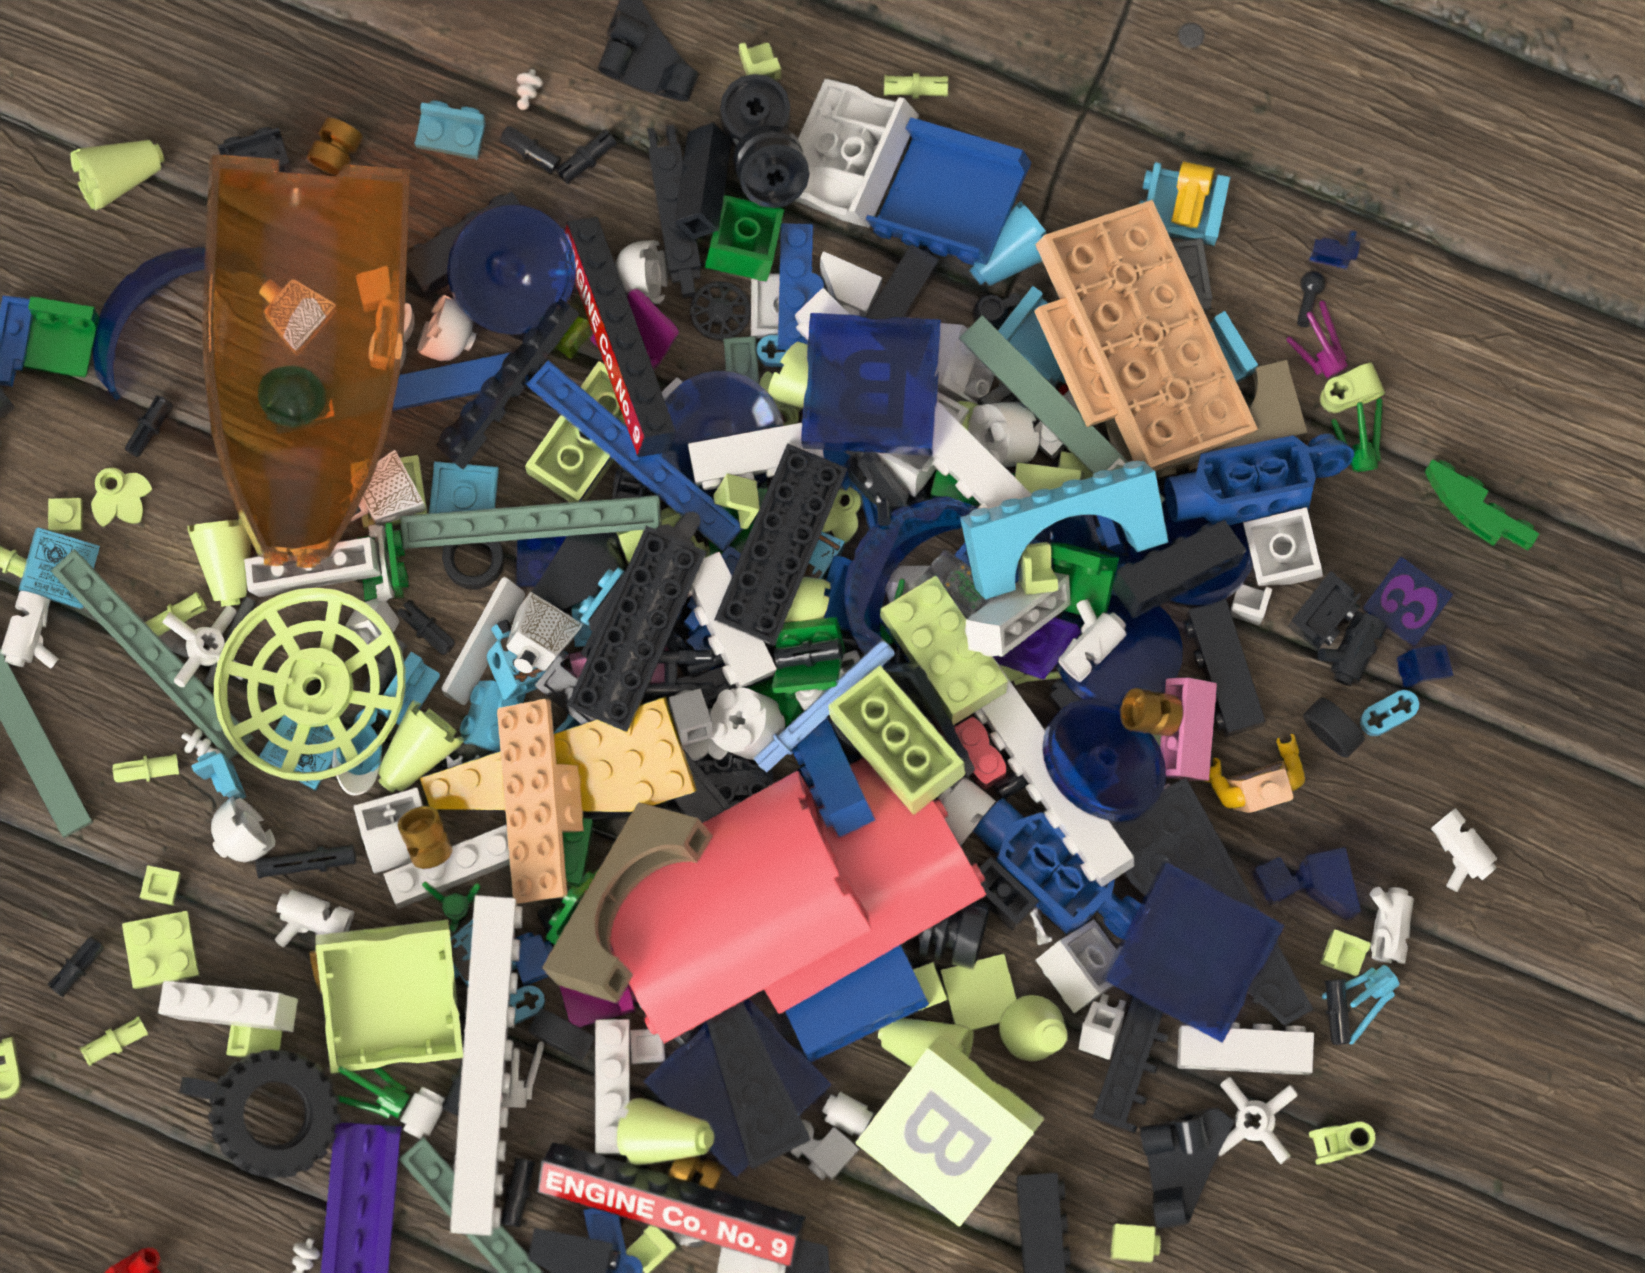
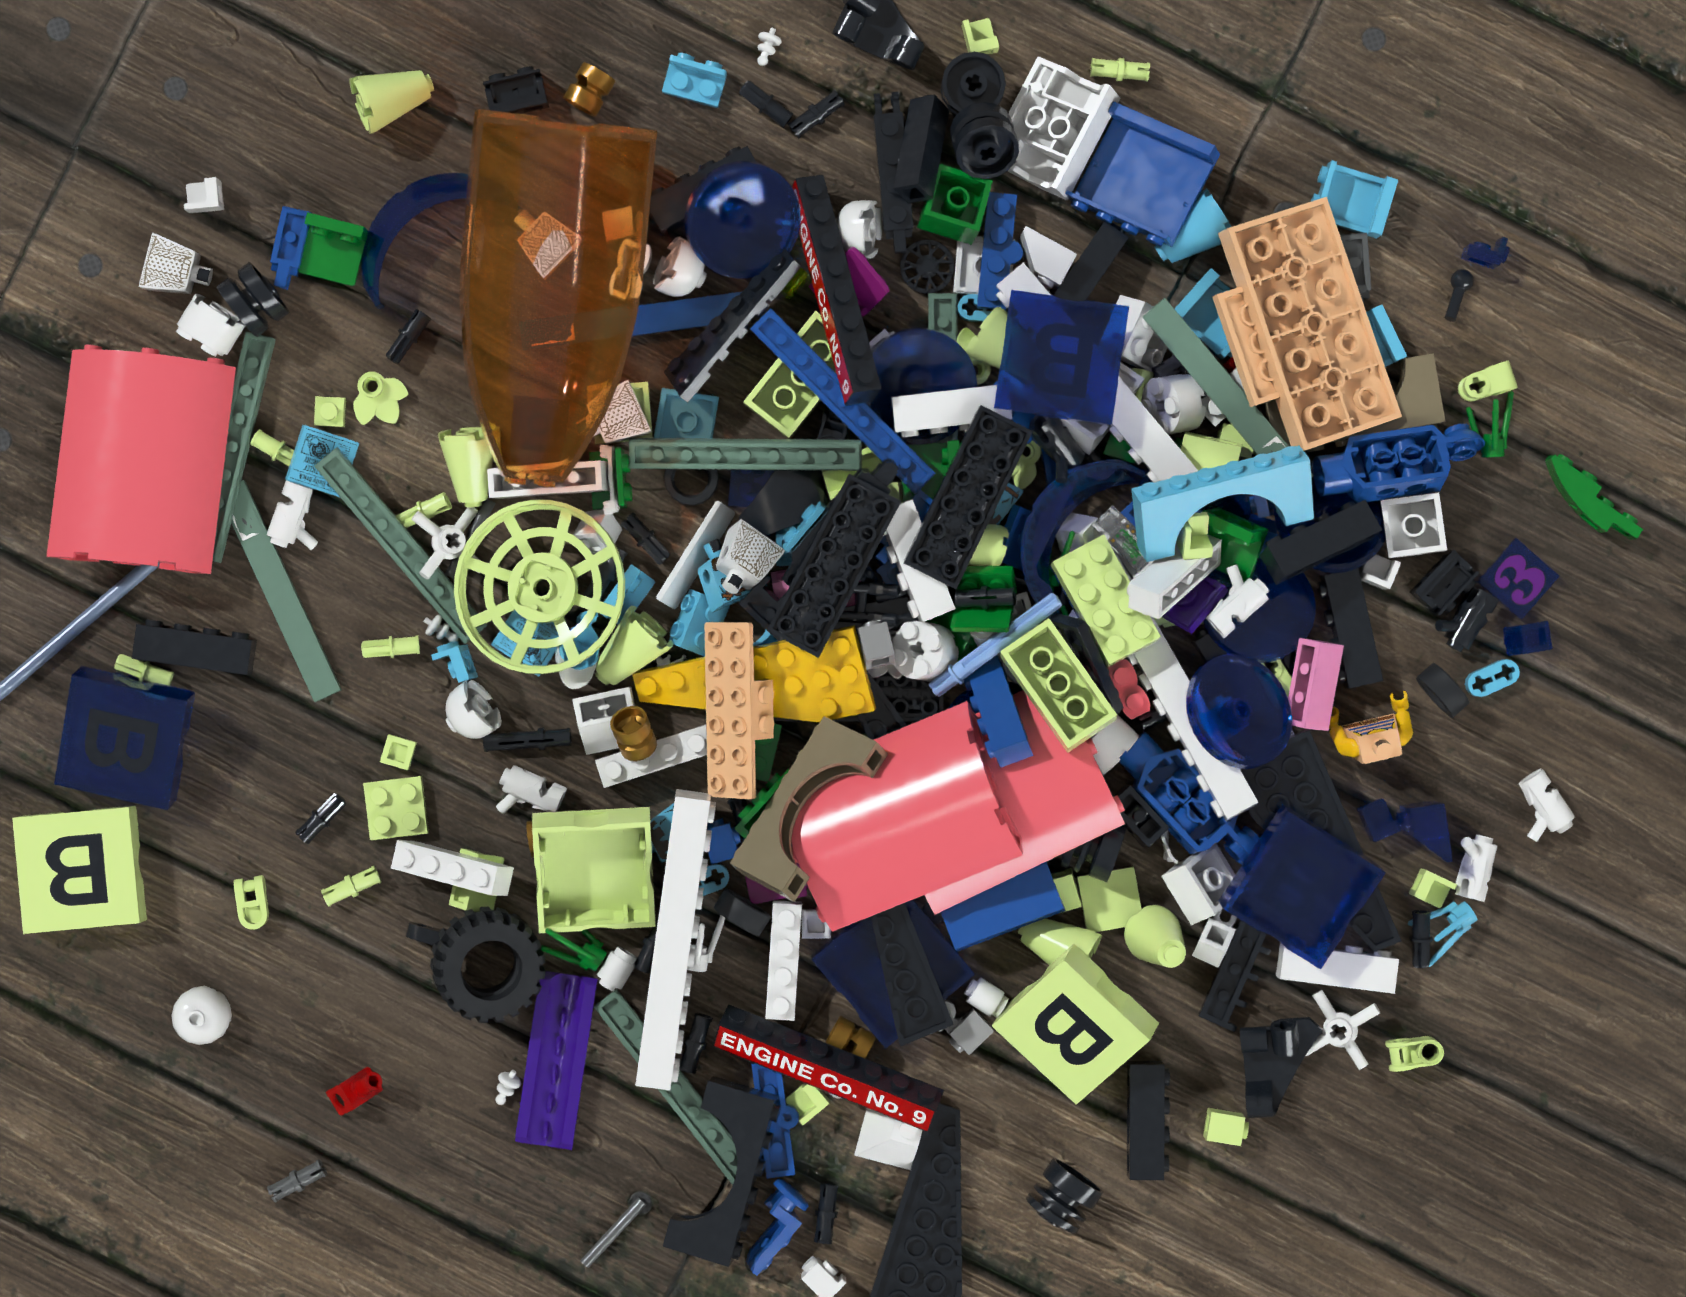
camera: 15 degrees right, 10 degrees up
(291, 396) = (537, 323): clear green piece -> none
(455, 905) = (655, 790): green plant -> none
(660, 1133) = (824, 1008): yellowish green cone -> none
(739, 494) = (933, 447): yellowish green panel -> none
(995, 308) = (1173, 285): black piece -> none
(1151, 712) = (1284, 670): pearl gold wheel -> none
(1193, 186) = (1363, 186): yellow piece -> none
(1331, 359) = (1473, 352): magenta plant -> none

